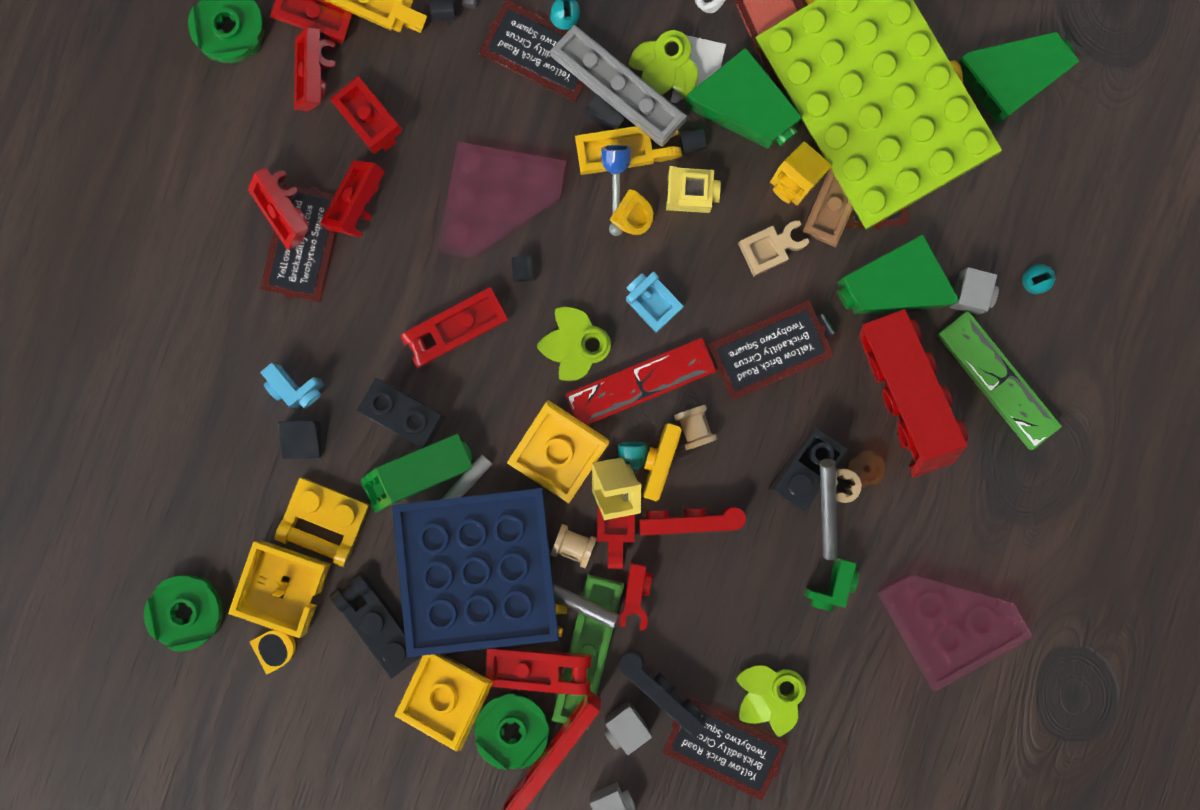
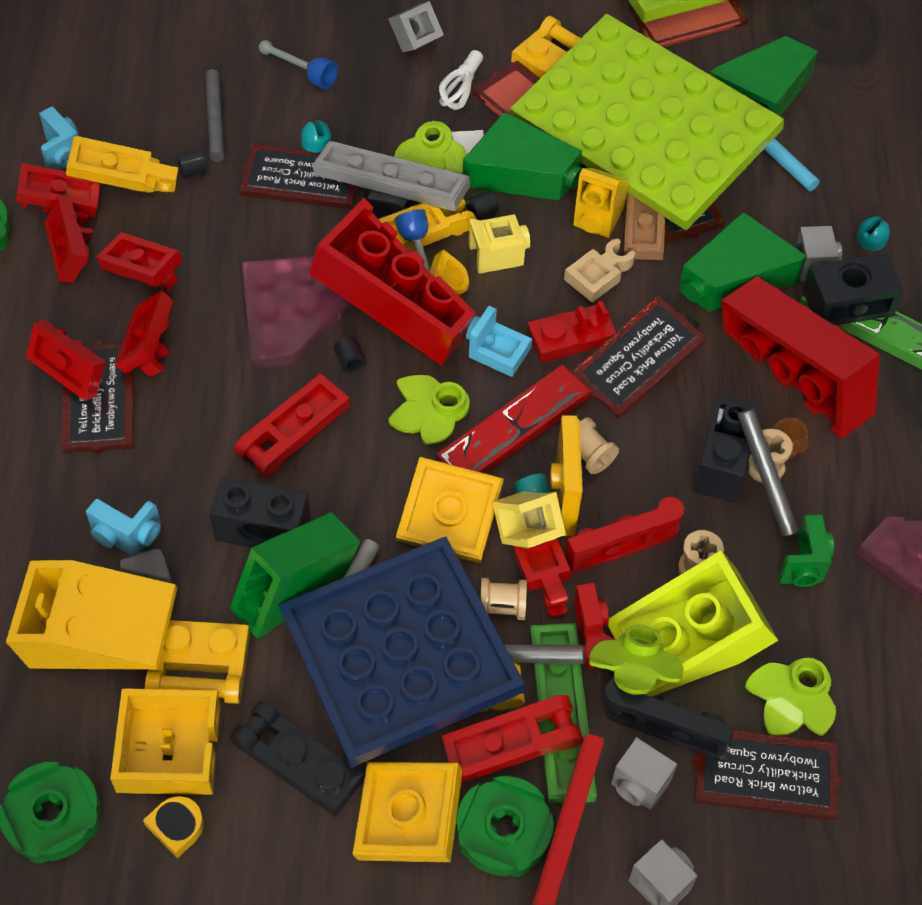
camera: 25 degrees left, 30 degrees down
(244, 471) = (90, 617): none -> yellow slope
(576, 220) = (390, 284): none -> red wedge
(649, 649) = (637, 660): none -> lime plate
(713, 620) = (703, 620): none -> neon yellow slope
(724, 302) = (570, 332): none -> red plate
(747, 572) = (692, 552): none -> tan bush
(997, 170) = (792, 165): none -> medium azure bar
(1007, 352) = (853, 289): none -> black brick

